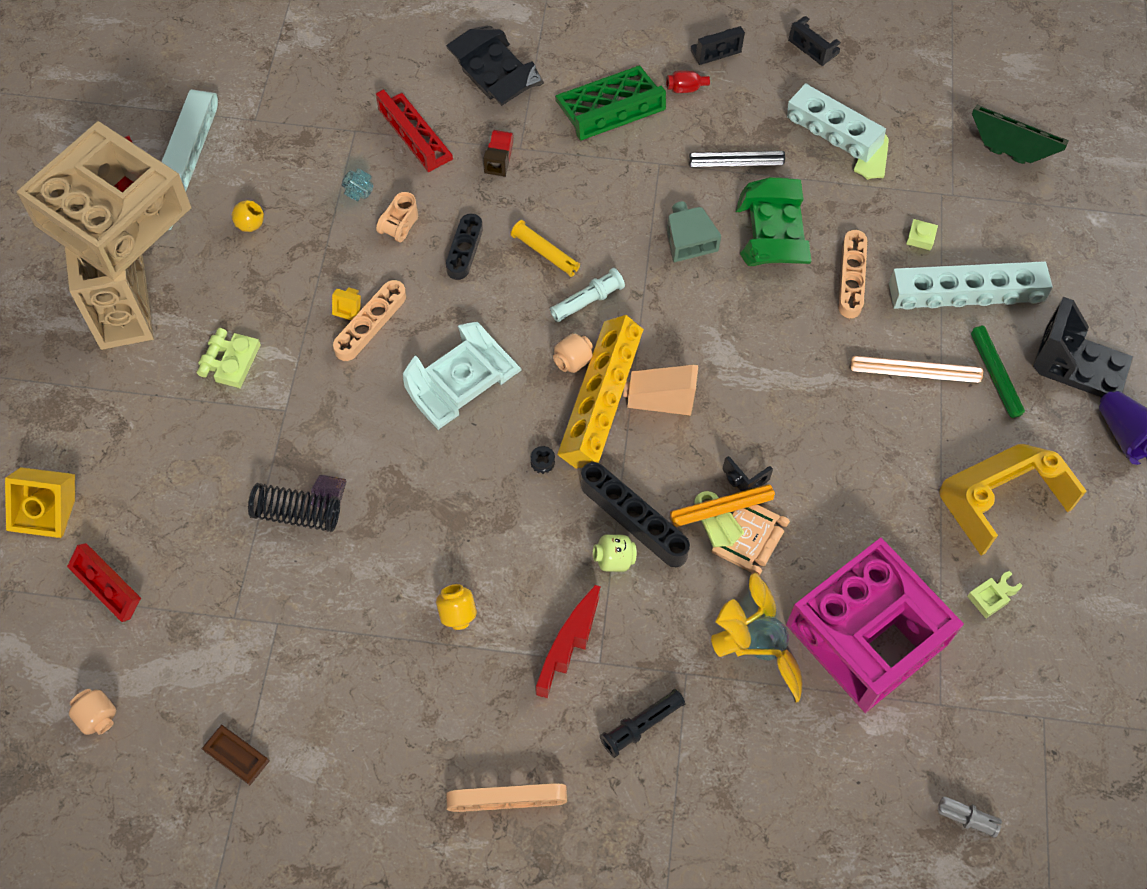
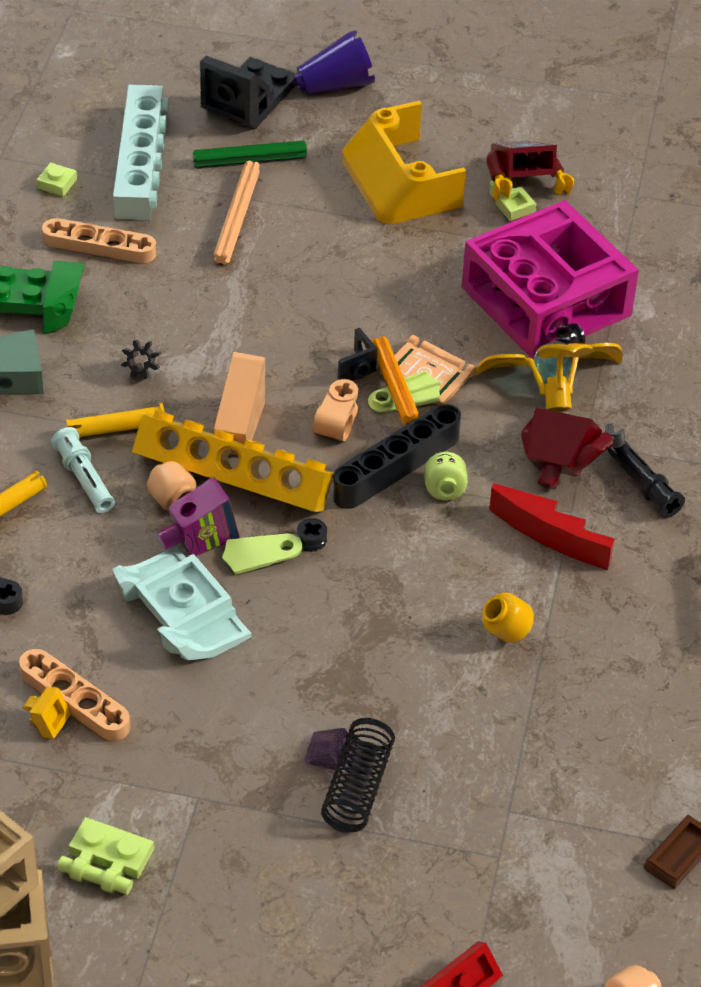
camera: 85 degrees left, 15 degrees down
(521, 424) = (260, 551): none -> yellowish green piece
(535, 376) = (200, 520): none -> magenta torso
(643, 312) = (111, 422): none -> yellow pin
(660, 644) = (565, 443): none -> dark red torso
(676, 465) = (337, 411): none -> light nougat piece
(711, 316) = (138, 367): none -> black gear
(801, 649) = (570, 334): none -> black bush
(1042, 595) = (524, 160): none -> dark red torso

